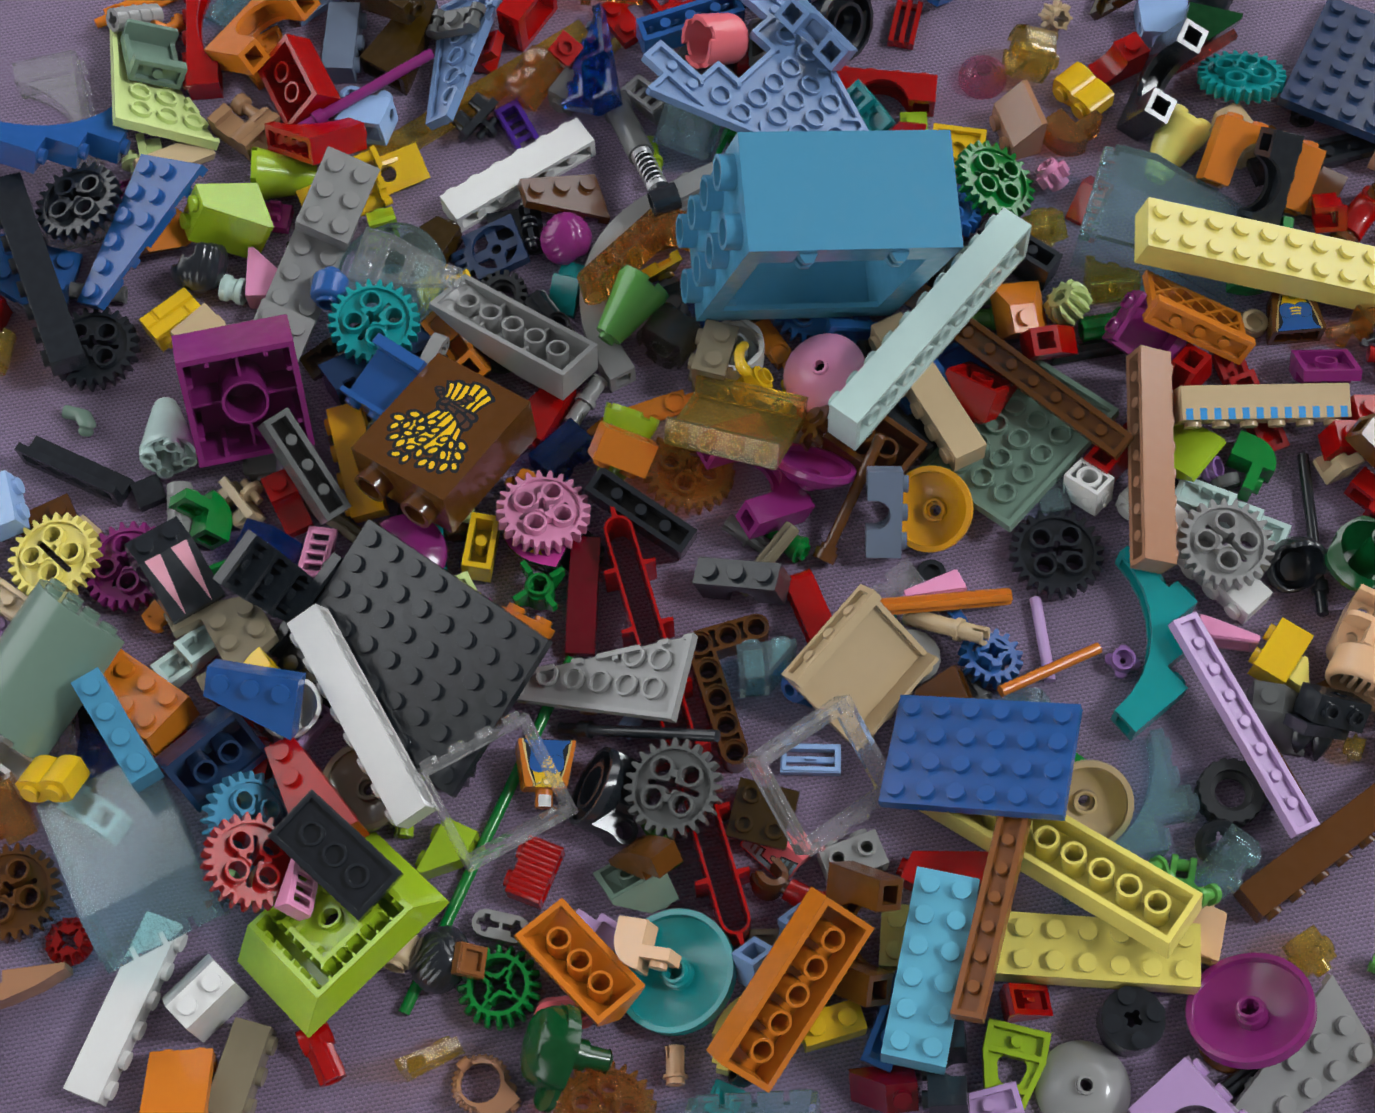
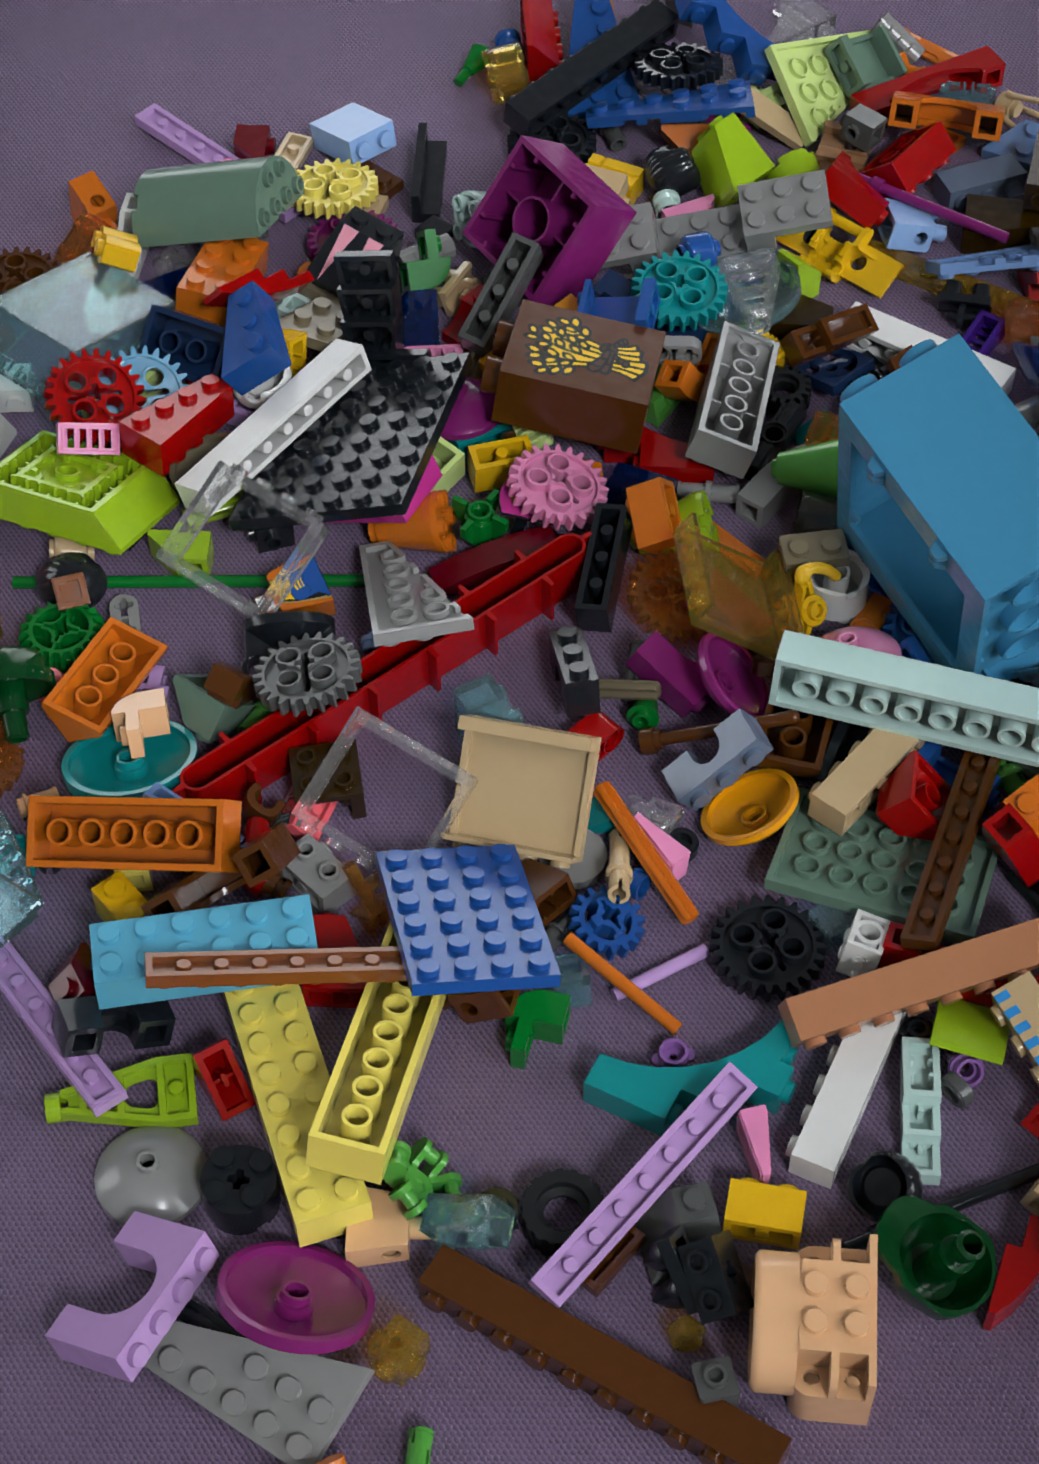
camera: 65 degrees right, 15 degrees down
(83, 418) = (480, 164): sand green arm -> none
(117, 730) = (152, 278): dark azure arch -> none
(187, 669) = (276, 285): none -> red slope
(241, 95) = (862, 127): none -> dark grey brick
(335, 855) = (119, 441): black tile -> none
(474, 233) = (828, 335): none -> reddish brown slope
(533, 872) = (190, 623): red brick -> none
(588, 730) = (354, 612): black bar -> none
(718, 686) = (434, 704): reddish brown beam -> none
(812, 770) = (423, 829): light blue tile -> none
(900, 825) = (373, 908): none -> clear orange arm
(1109, 798) = (457, 1062): tan dish -> none
(1162, 806) = (513, 1144): clear light blue arch -> none
(1208, 560) = (895, 1104): light grey gear -> none
(1255, 459) = (999, 1113): green brick -> none
(1299, 674) = (749, 1238): light yellow slope -> none

